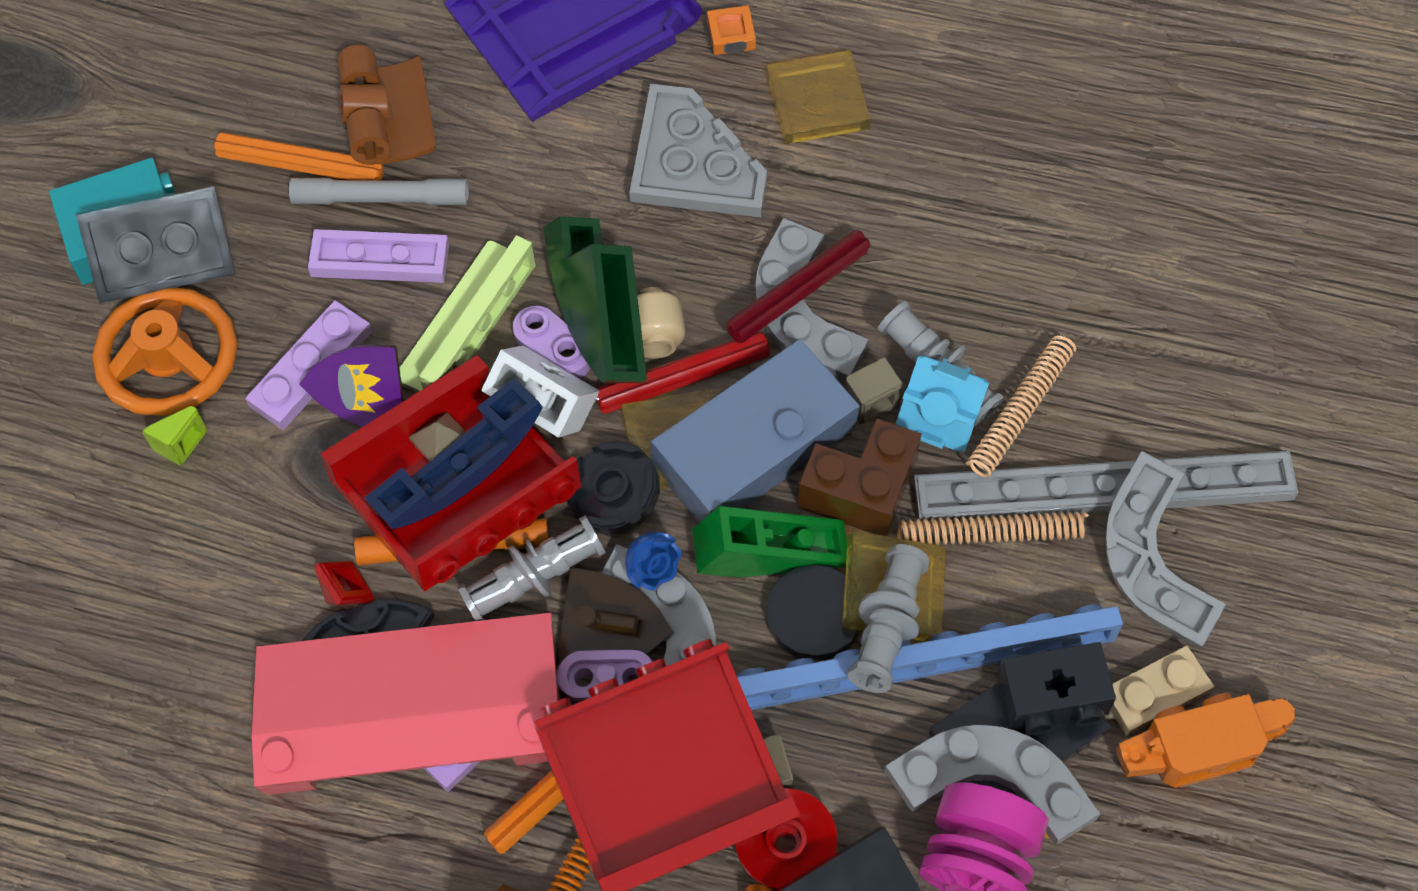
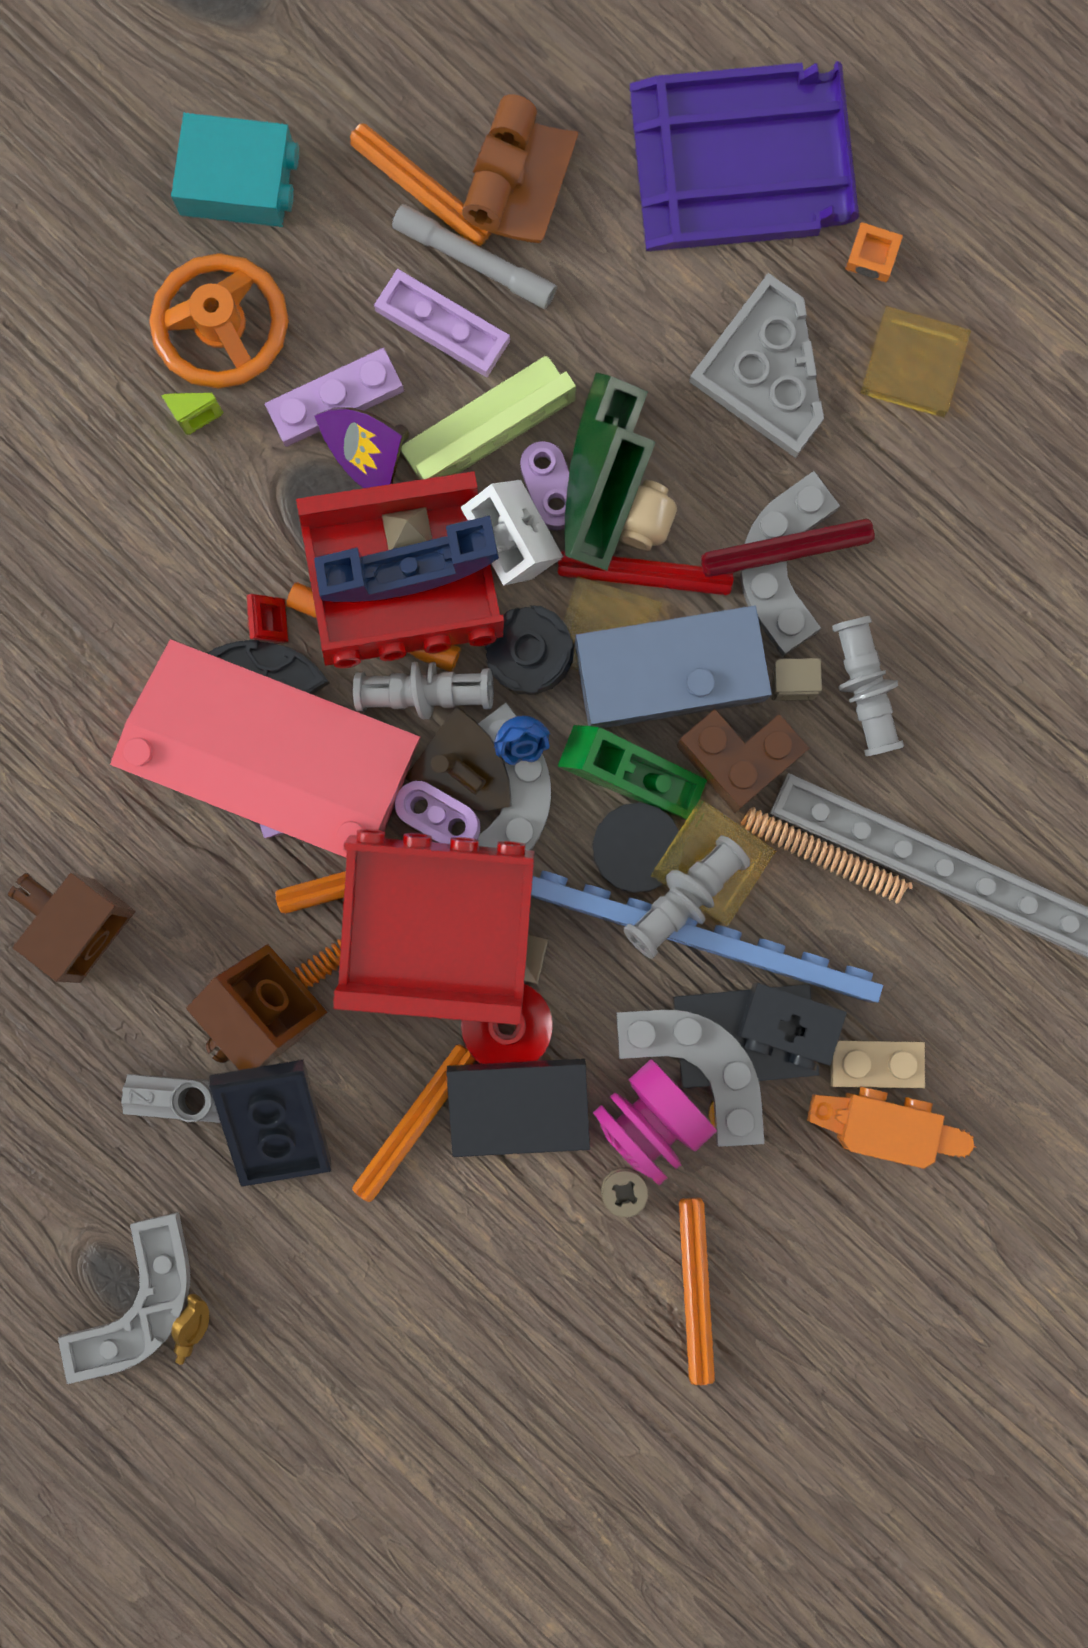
camera: 30 degrees right, 20 degrees up
(155, 243) = (252, 215): tile -> none
(942, 403) = (845, 726): medium azure piece -> none
(1036, 387) = (899, 773): light nougat piece -> none
(1136, 559) = (927, 950): light grey plate -> none

